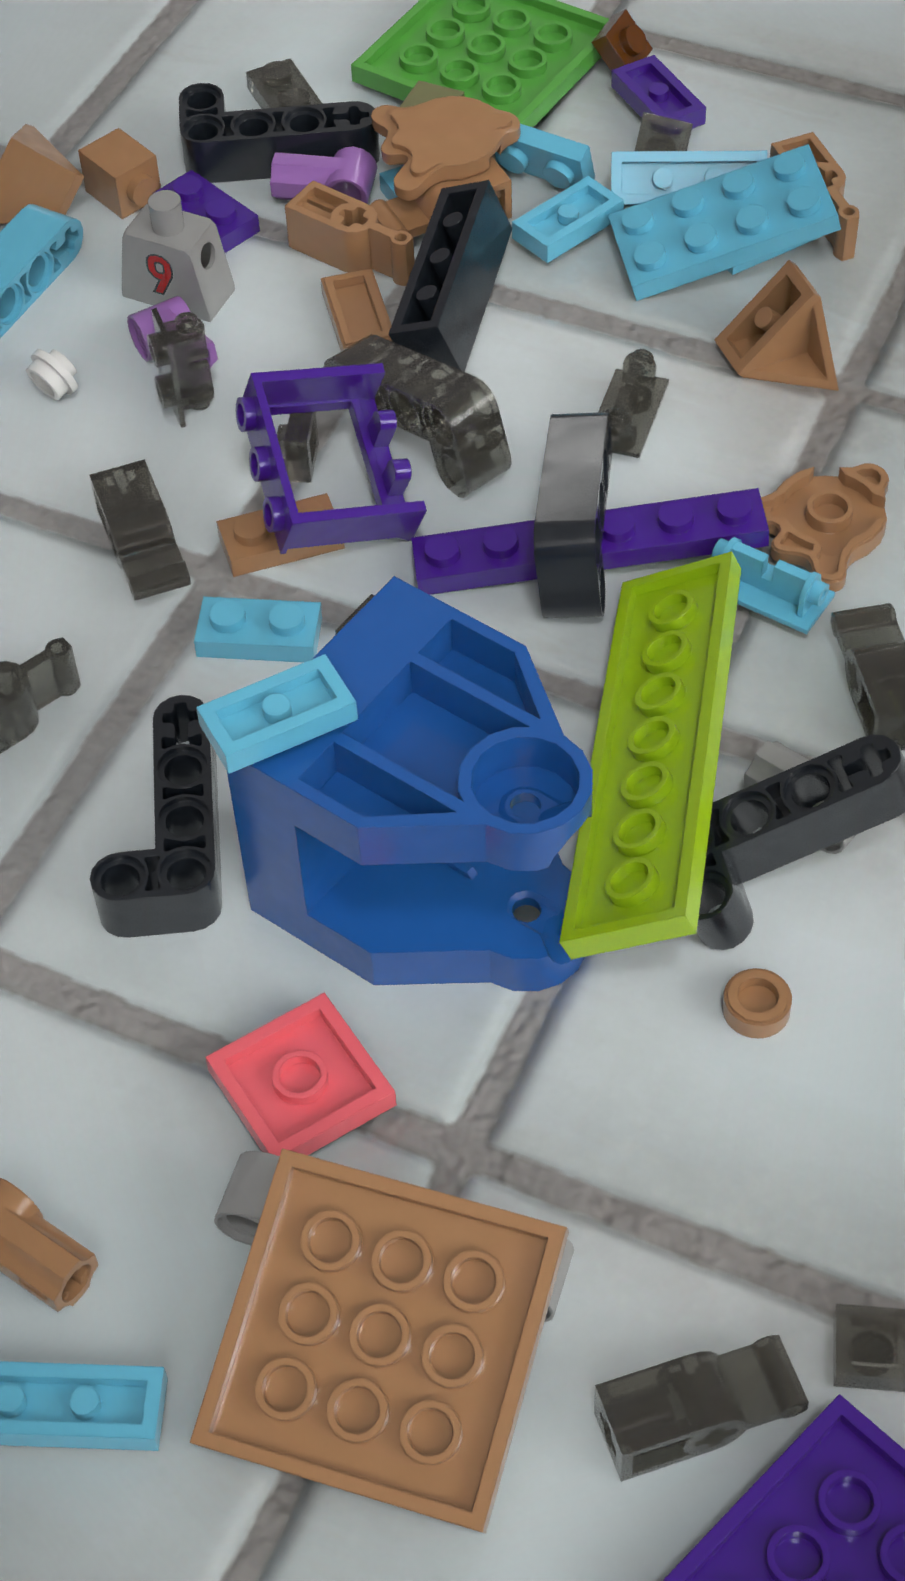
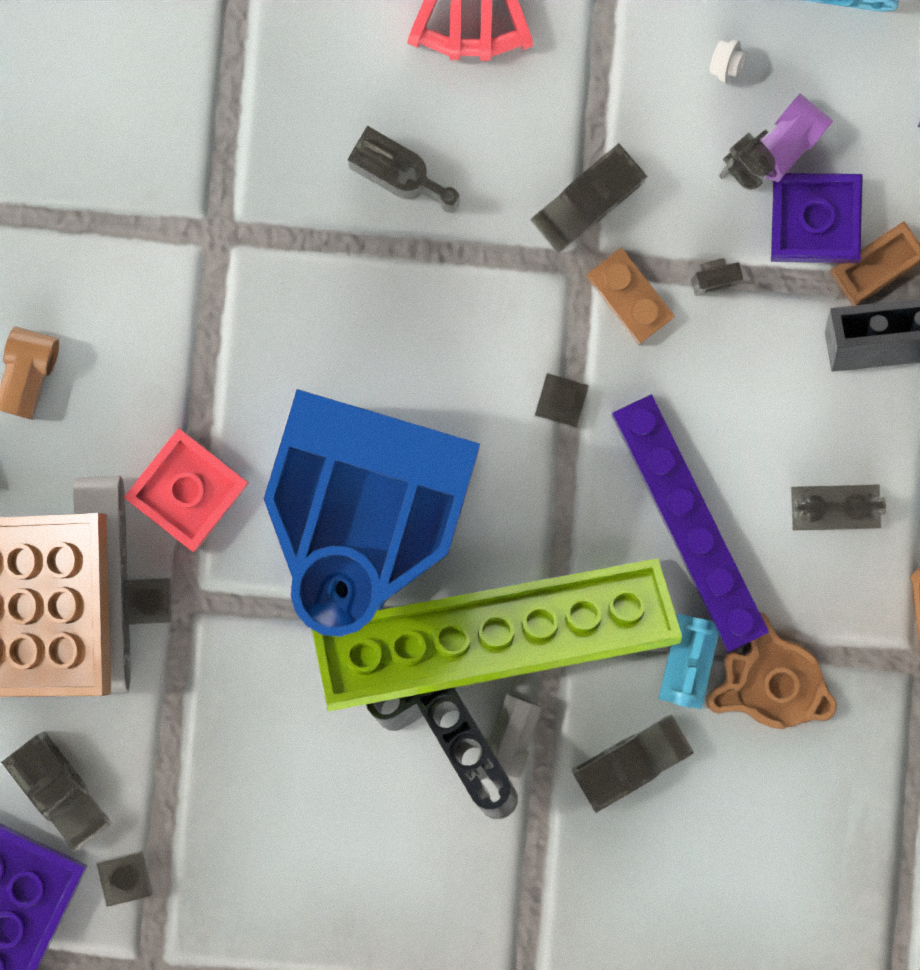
camera: 65 degrees right, 35 degrees up
(173, 256) = (870, 102): light grey torso -> none
(185, 839) = (352, 327): black beam -> none
(258, 629) = (537, 316): medium azure plate -> none
(276, 335) = (817, 218): none -> dark purple plate
(277, 713) = (321, 418): medium azure plate -> none
(326, 390) = (694, 359): dark purple window -> none
(440, 406) = (776, 353): clear smoke beam -> none
(448, 1168) = (147, 601): none -> clear smoke plate
(573, 515) = (702, 506): black beam -> none
(757, 1003) = (341, 748): medium nougat tile -> none

